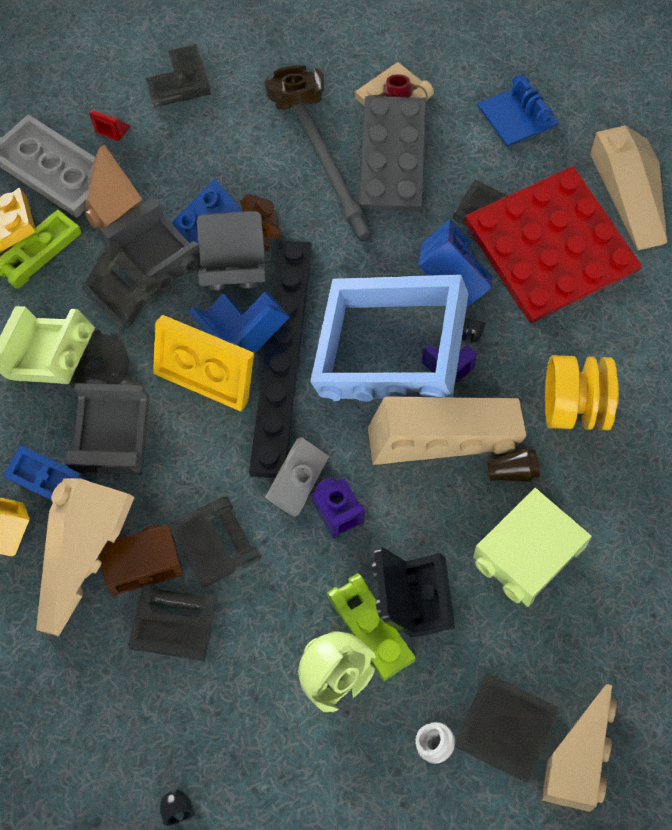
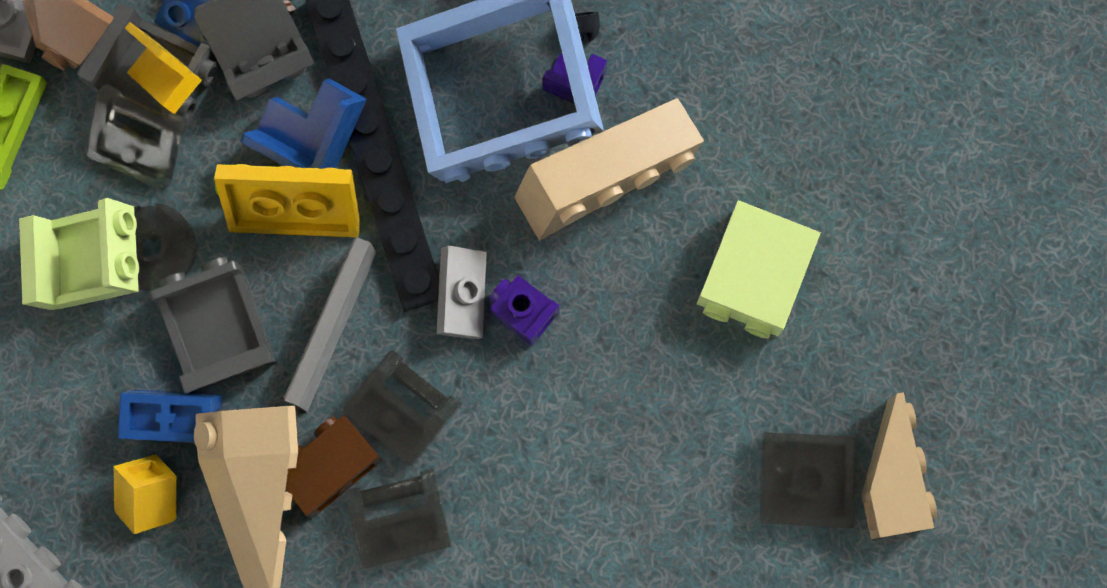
camera: 25 degrees left, 15 degrees up
(157, 249) = (161, 72): none -> yellow panel
(191, 461) = (330, 324): none -> light grey tile
(334, 661) = (599, 496): yellowish green cylinder -> none
(365, 624) = (619, 432): lime plate -> none
(413, 593) = (652, 376): black bracket -> none
(427, 735) = (728, 532): white plate -> none
(515, 466) = (702, 179): dark brown cone -> none
(587, 393) = (745, 63): yellow wheel -> none

